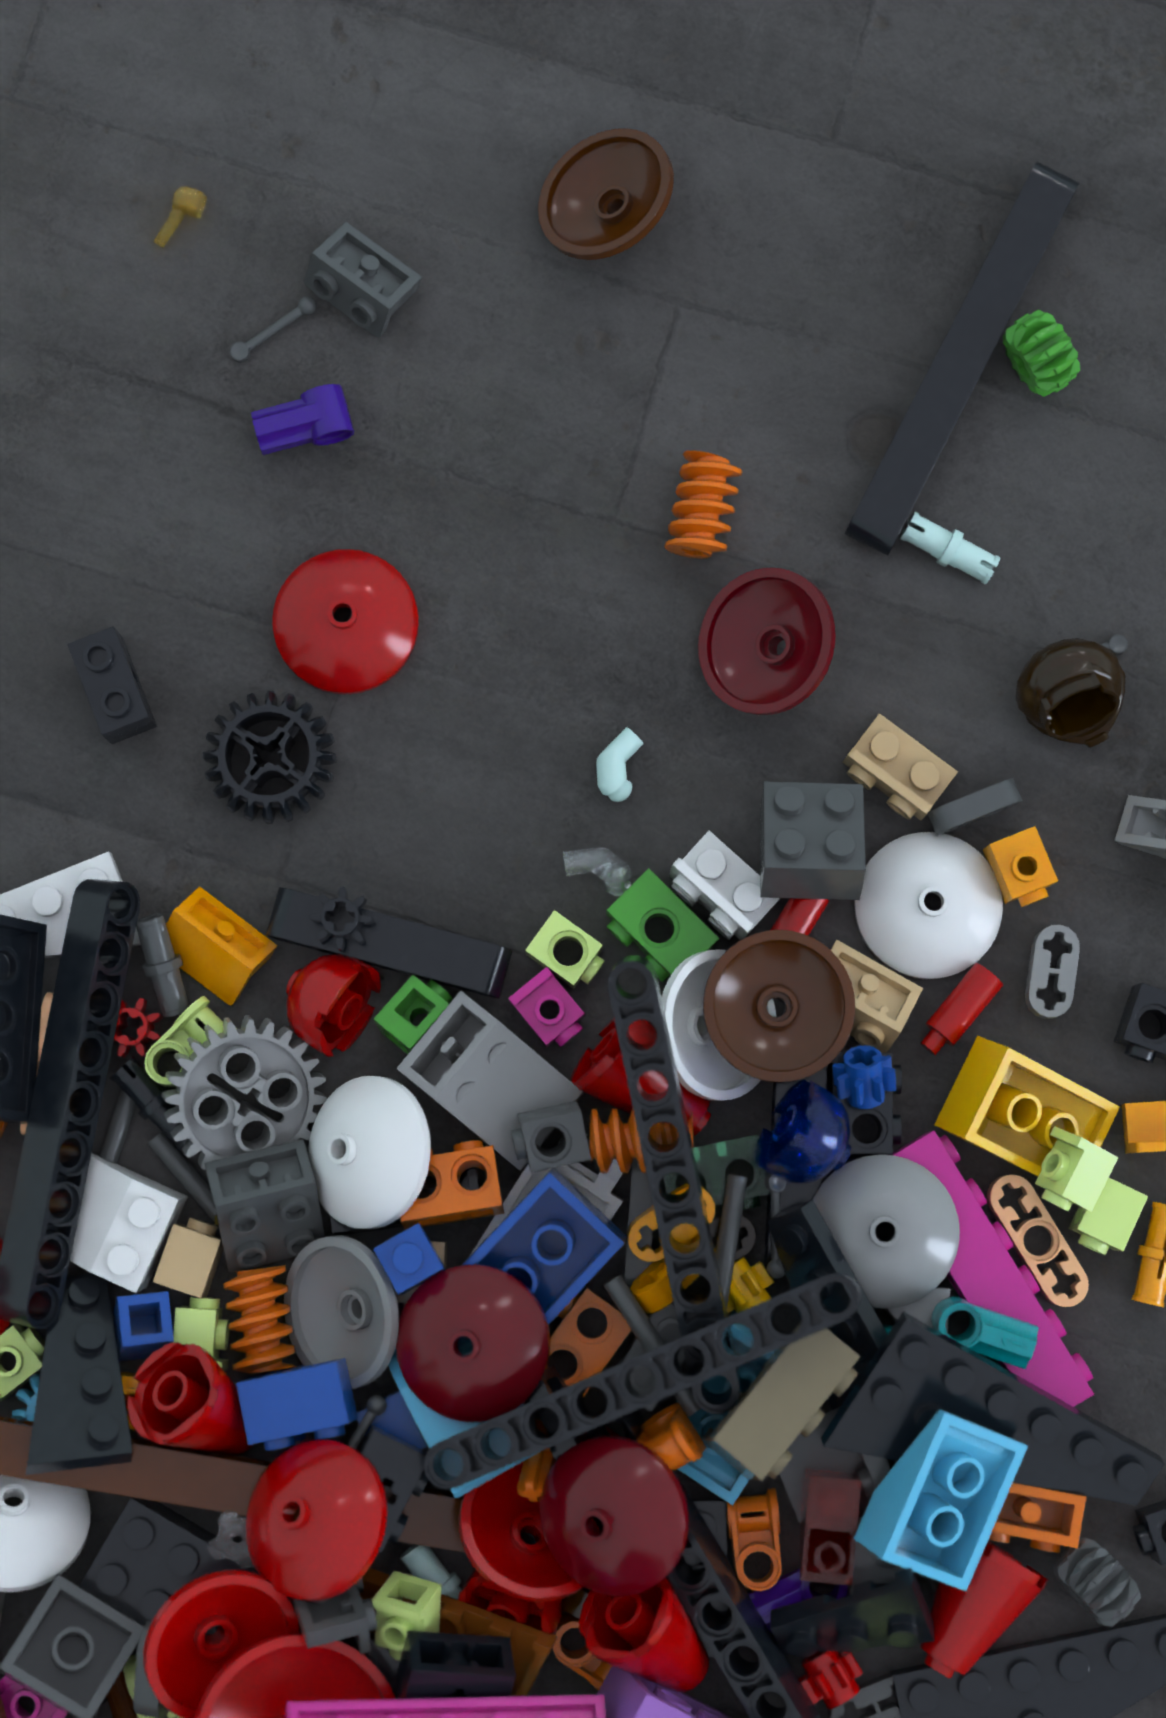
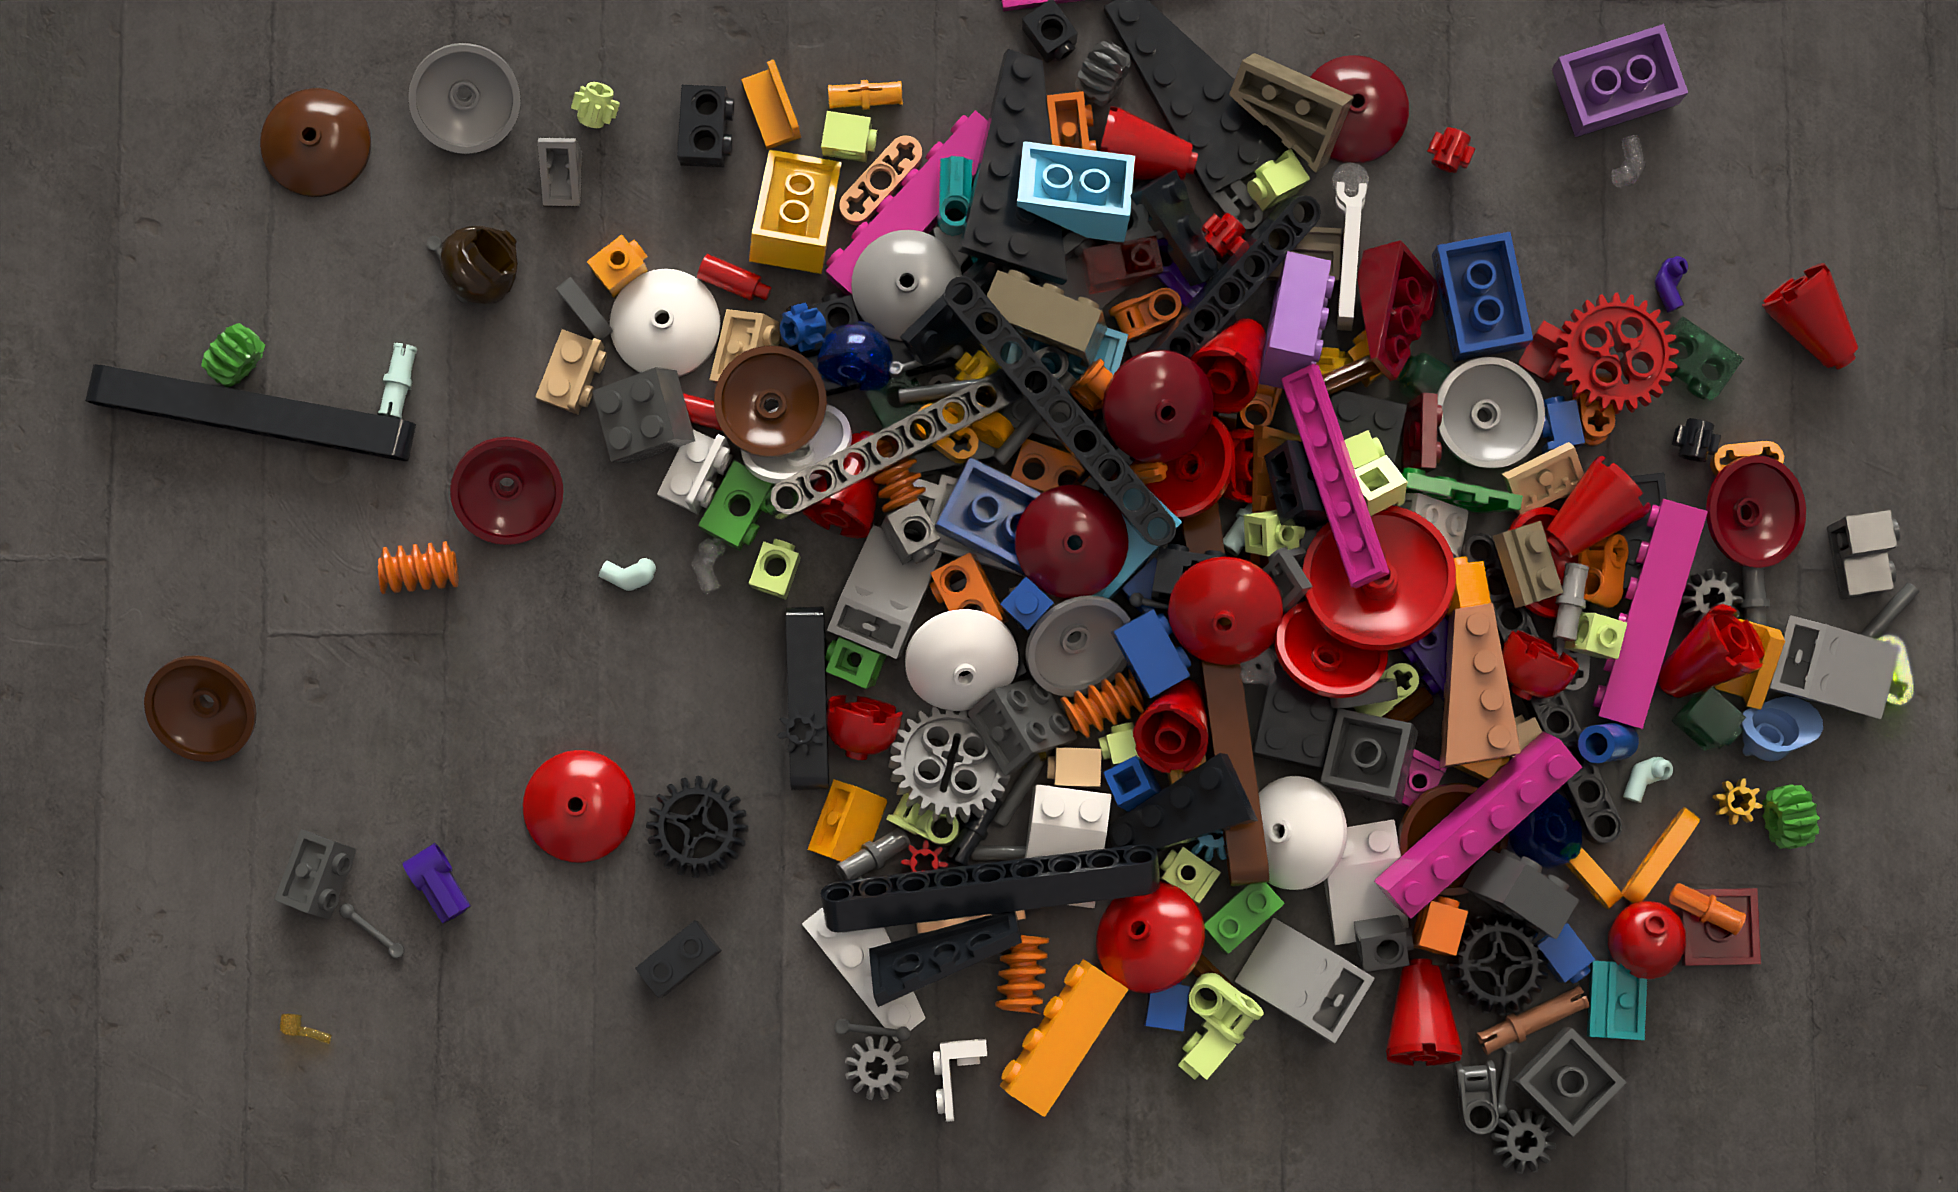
camera: 105 degrees left, 0 degrees up
(539, 990) = (821, 582): dark pink brick -> none
(1040, 969) = (689, 231): light grey beam -> none
(1074, 1171) = (825, 166): yellowish green brick -> none

